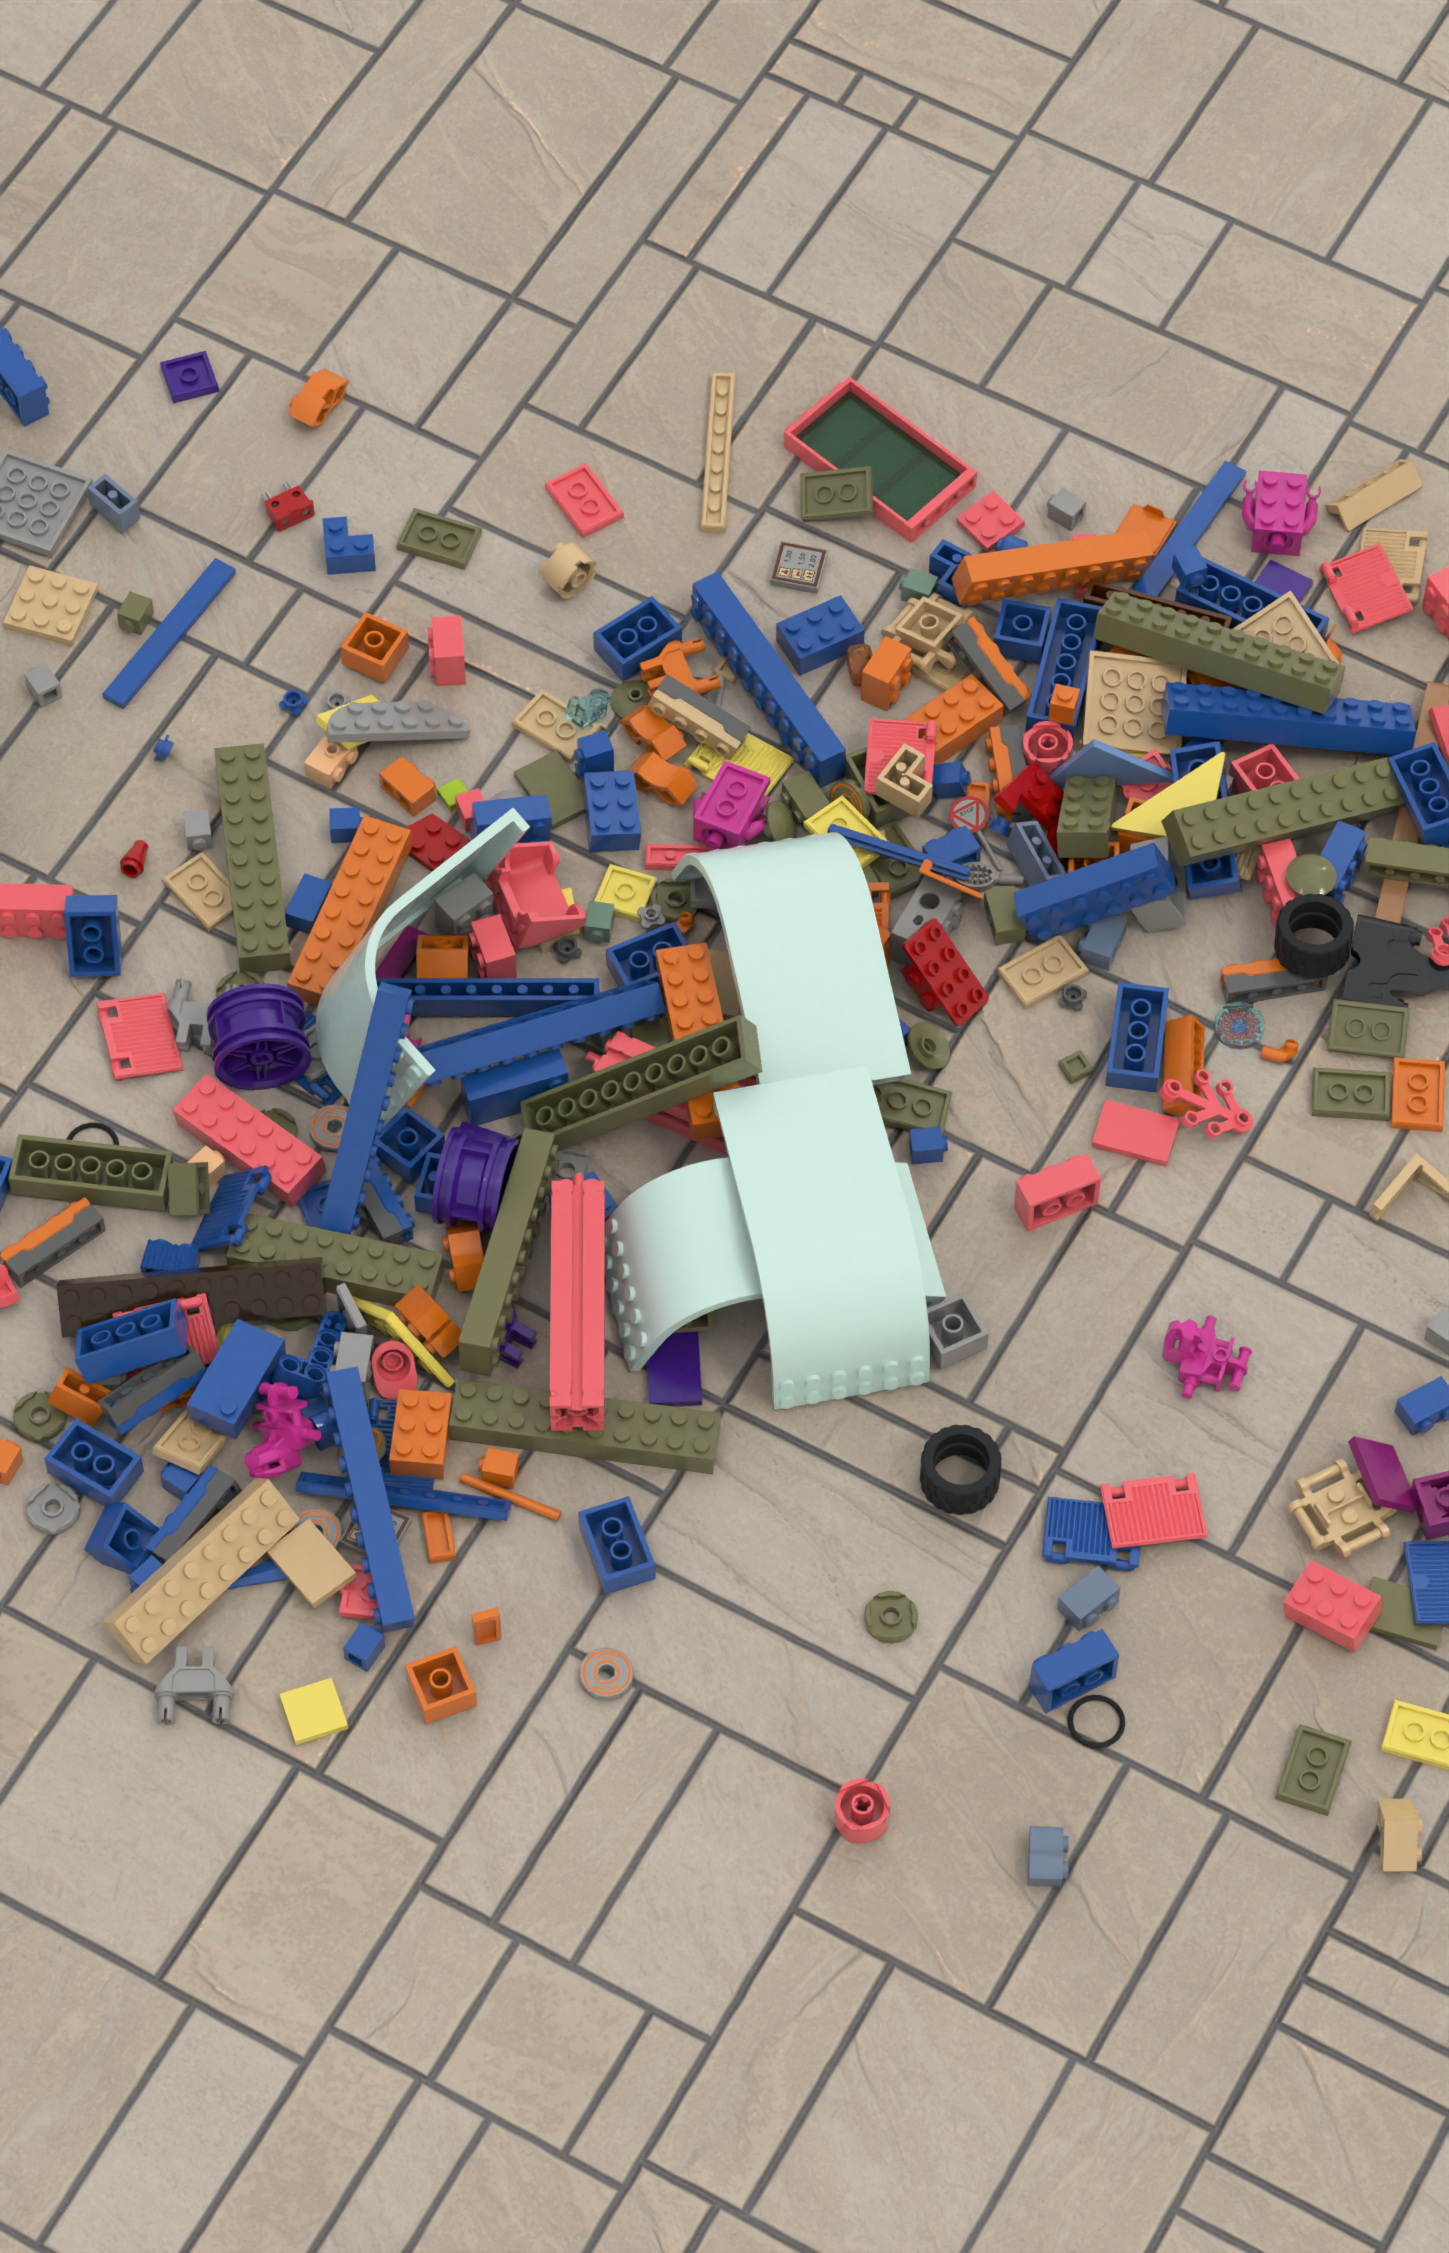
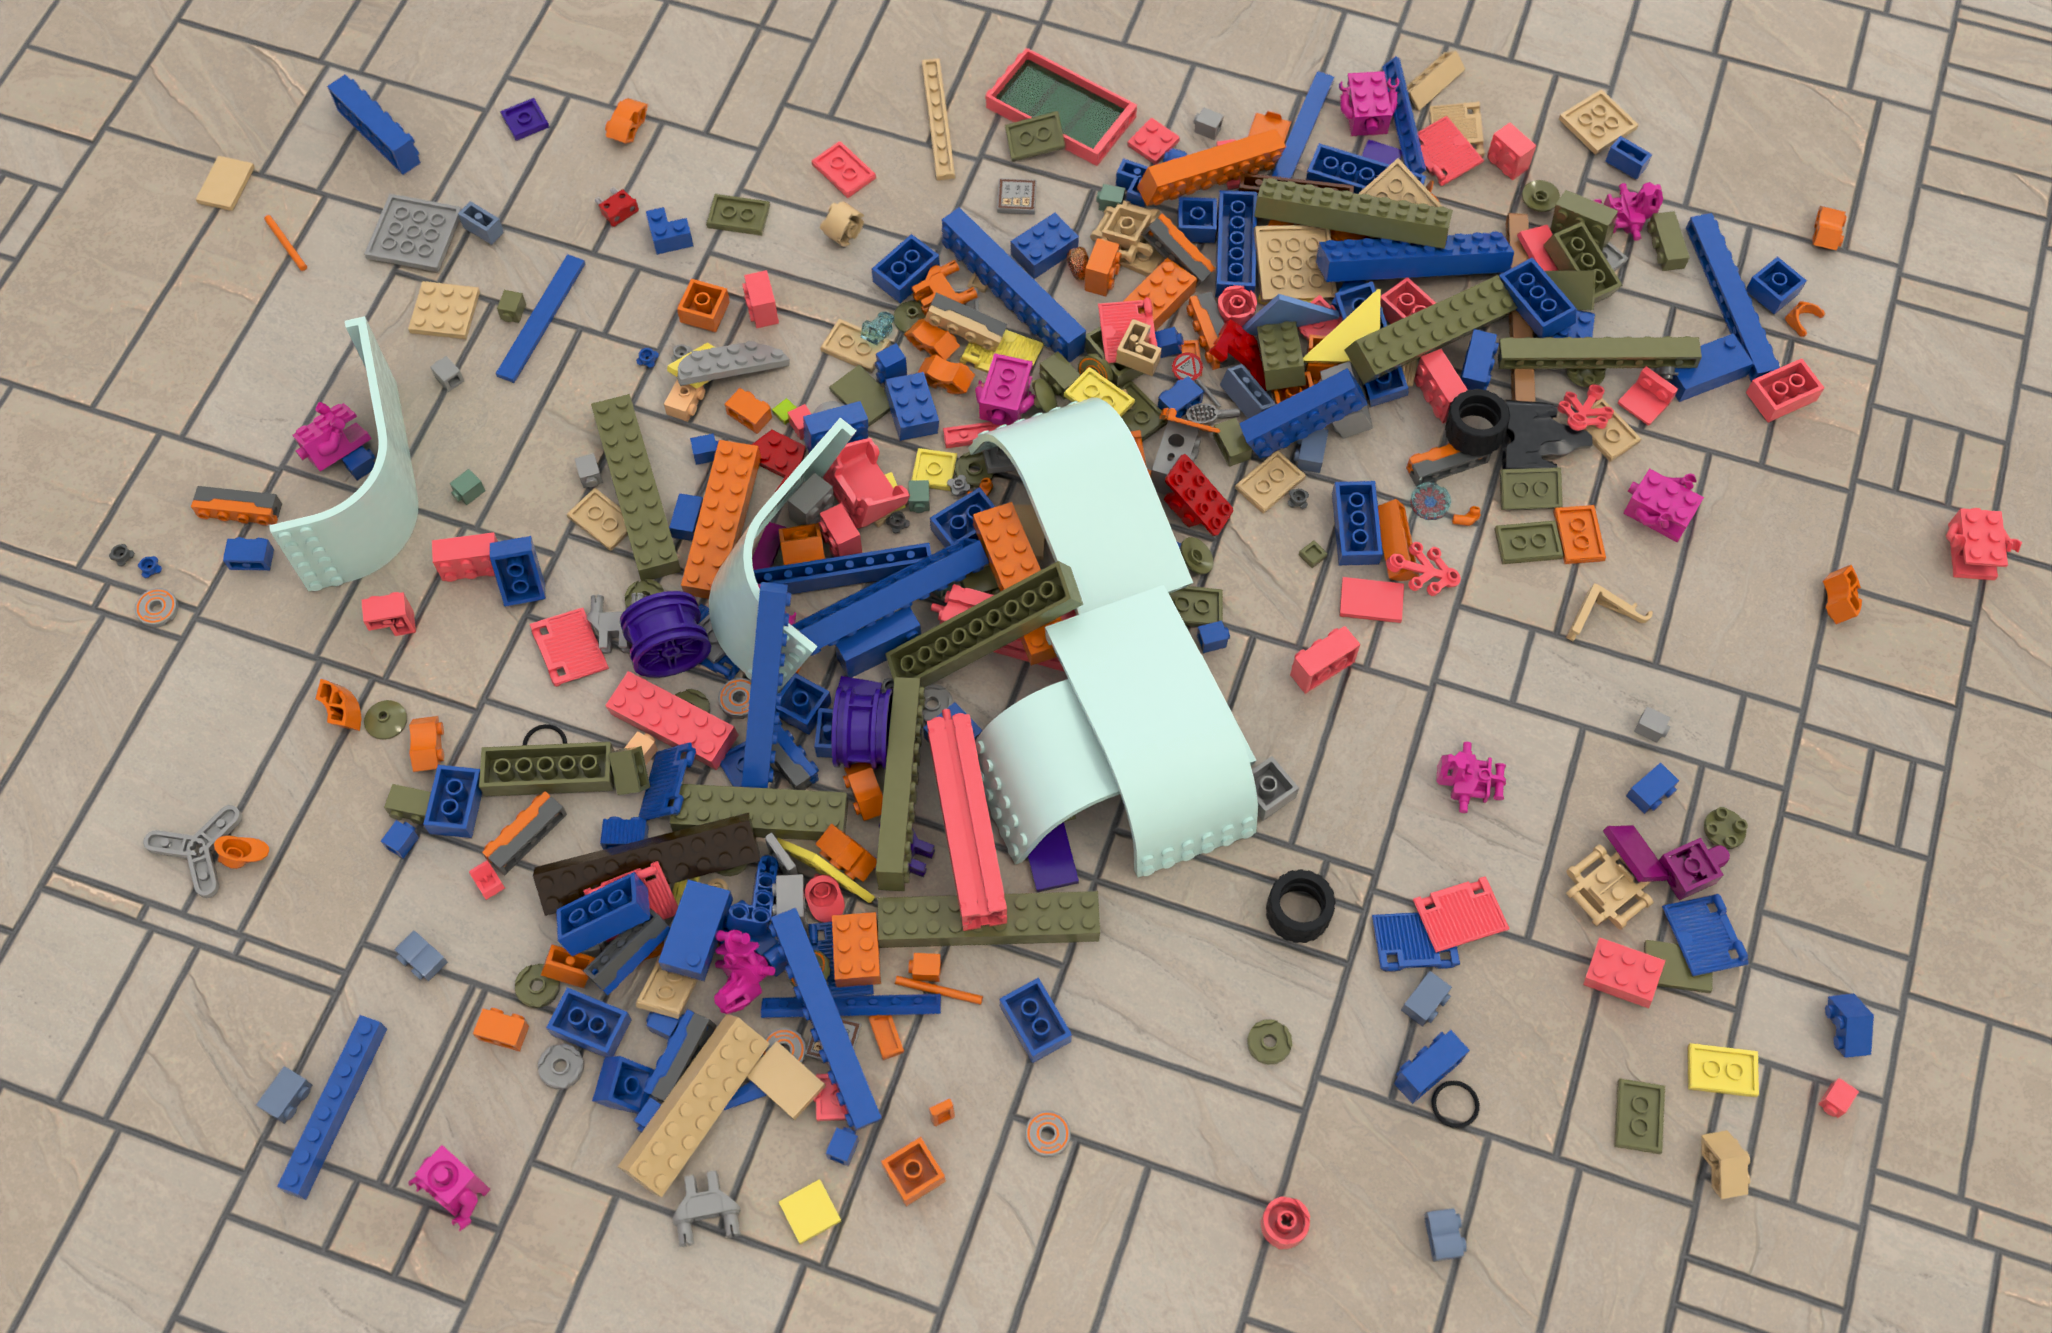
camera: 10 degrees left, 5 degrees up
(46, 827) = (467, 487): none -> sand green brick
(134, 860) = (542, 502): red cone -> none
(162, 748) = (550, 409): blue plate -> none
(901, 853) = (1146, 405): blue axle -> none
(1000, 825) = (1213, 371): blue plate -> none
(1064, 704) = (1245, 270): orange brick -> none
(1189, 567) = (1315, 152): blue brick -> none
(1311, 875) = (1465, 375): olive dish -> none
(1323, 538) = (1404, 119): none -> blue tile

